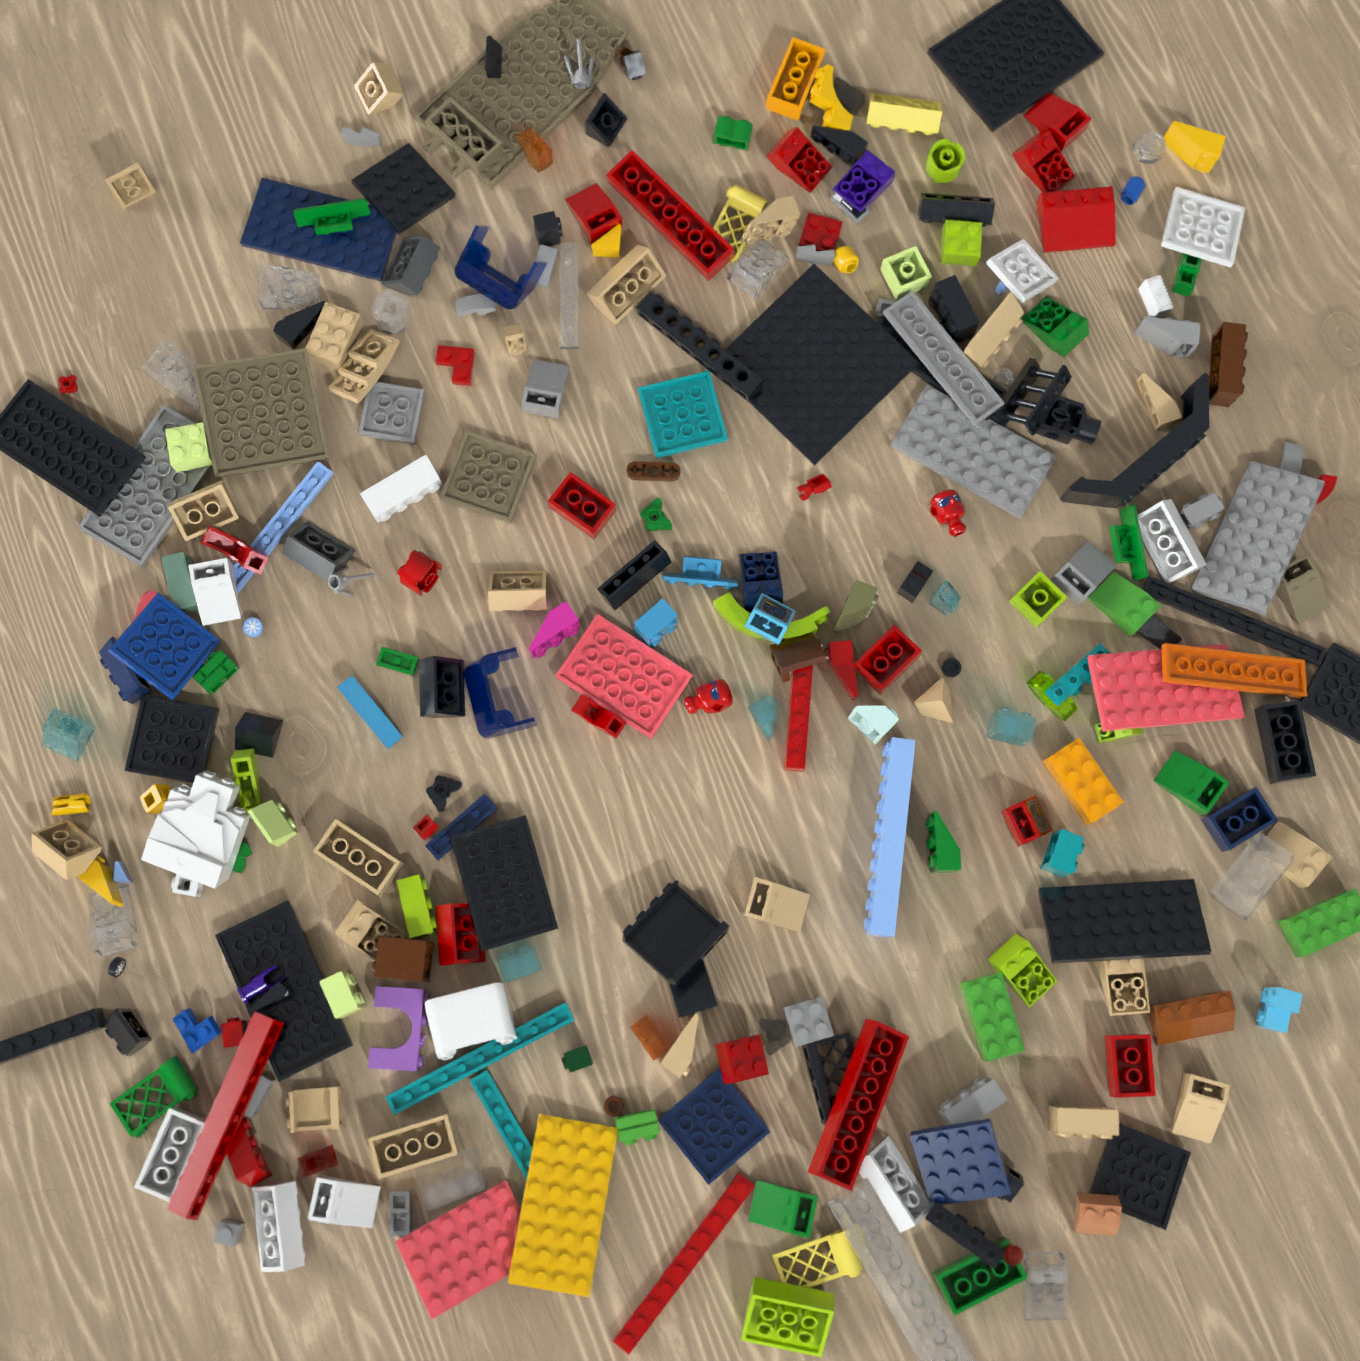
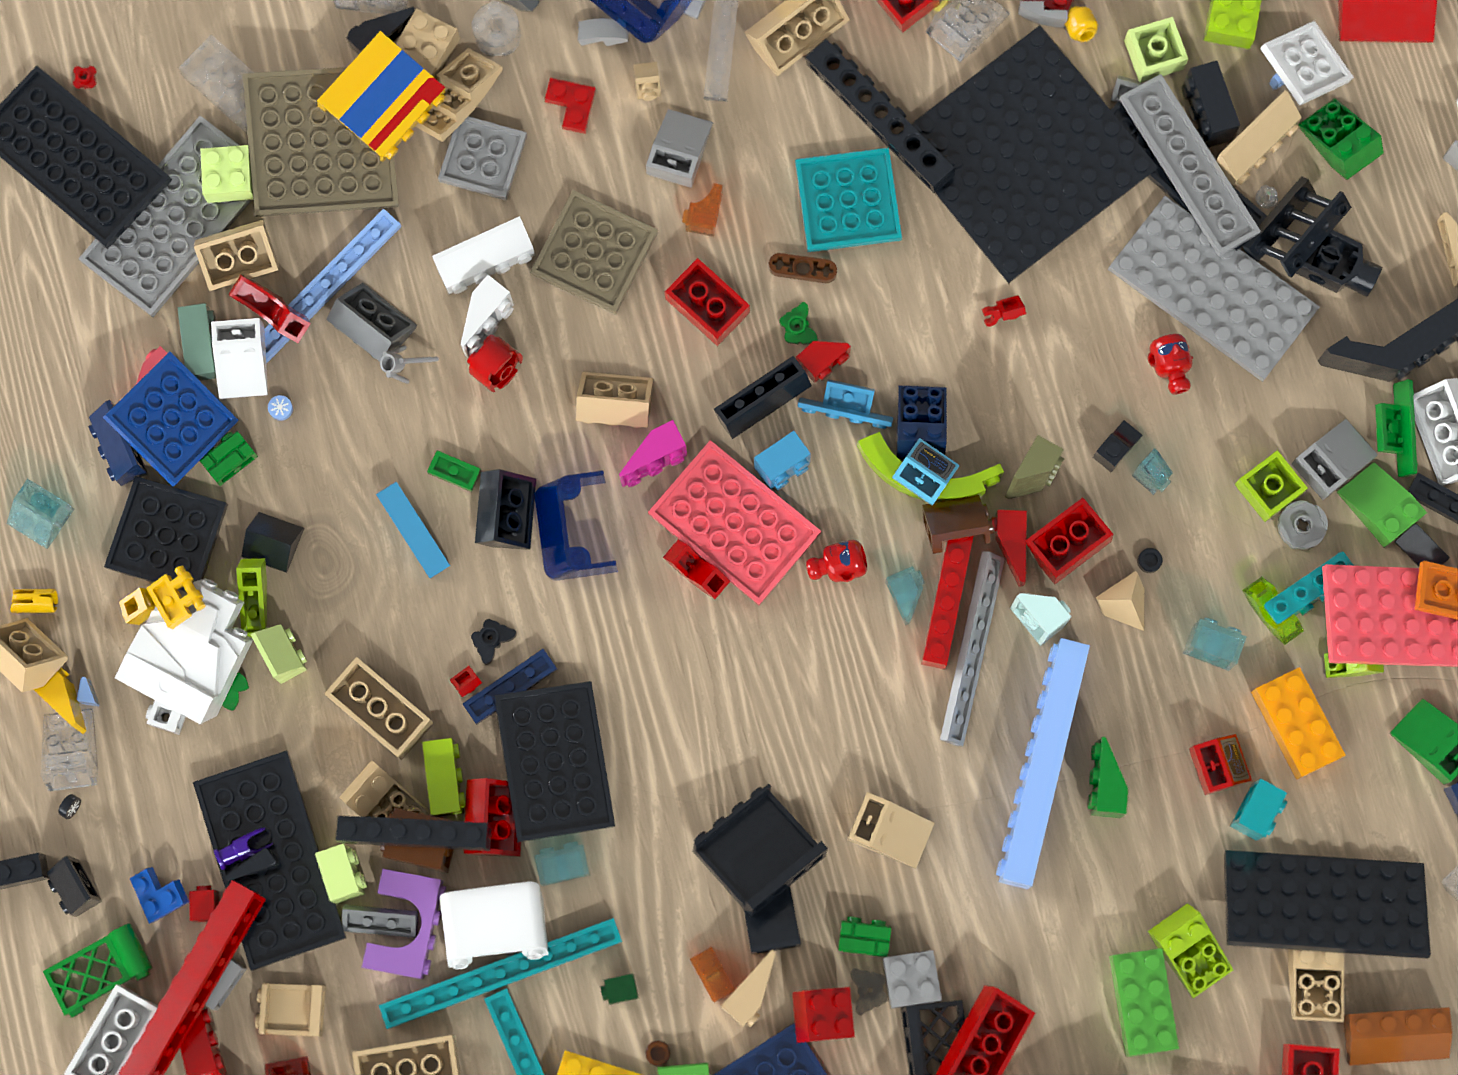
camera: 15 degrees right, 0 degrees up
(178, 793) = (169, 600): none -> yellow plate
(306, 372) = (382, 96): none -> panel
(378, 1028) = (380, 921): none -> dark grey plate
(397, 955) = (413, 833): none -> black brick
(408, 531) = (487, 307): none -> white slope
(570, 438) = (703, 215): none -> clear orange arch
(677, 538) = (821, 357): none -> red slope
(766, 993) = (864, 938): none -> green brick
(822, 753) = (972, 649): none -> light grey plate
(1063, 637) = (1296, 537): none -> light grey plate

